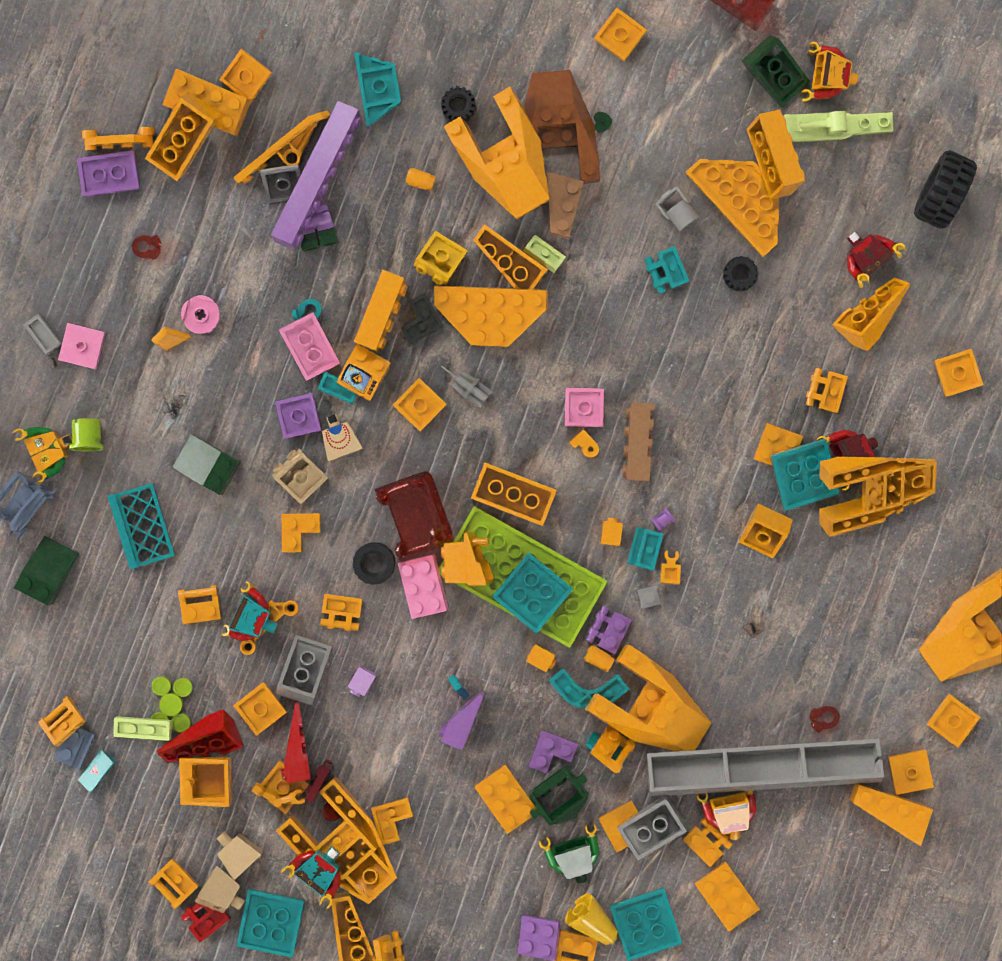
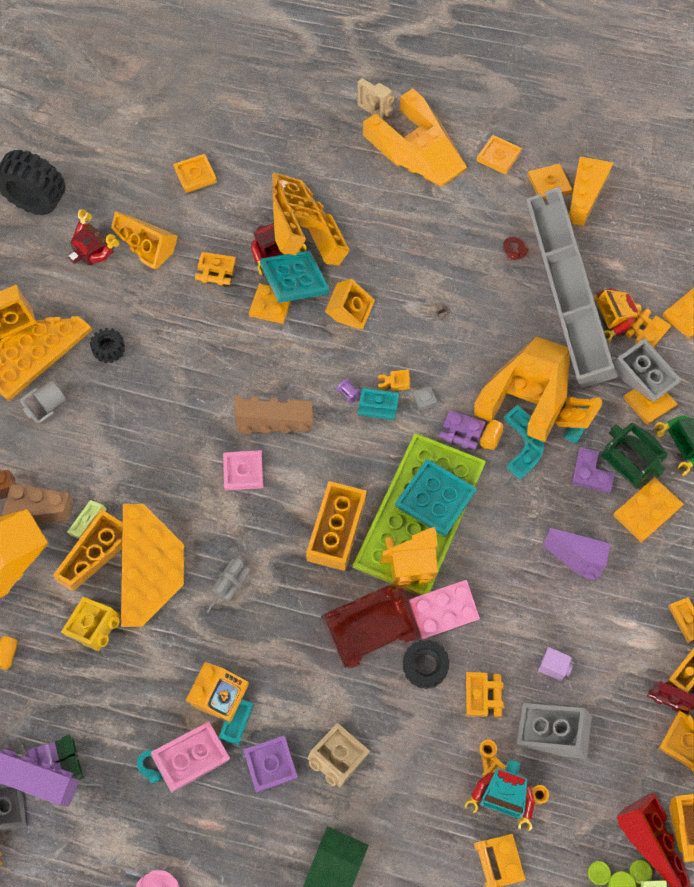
camera: 105 degrees left, 25 degrees down
(260, 708) = (606, 776): light orange plate -> none
(294, 525) = (396, 759): light orange plate -> none
(296, 760) = (660, 723): red wedge -> none
(340, 439) = (293, 713): tan torso -> none
(380, 311) = (147, 677): light orange brick -> none
(419, 404) = (250, 631): light orange plate -> none
(427, 320) = (157, 632): pearl dark grey plate -> none
(458, 687) = (543, 565): teal tile -> none
(541, 658) = (500, 487): light orange brick -> none
(587, 444) = (279, 465): light orange leg -> none
(611, 532) = (365, 434): light orange brick -> none
(672, 267) = (101, 403): teal plate -> none

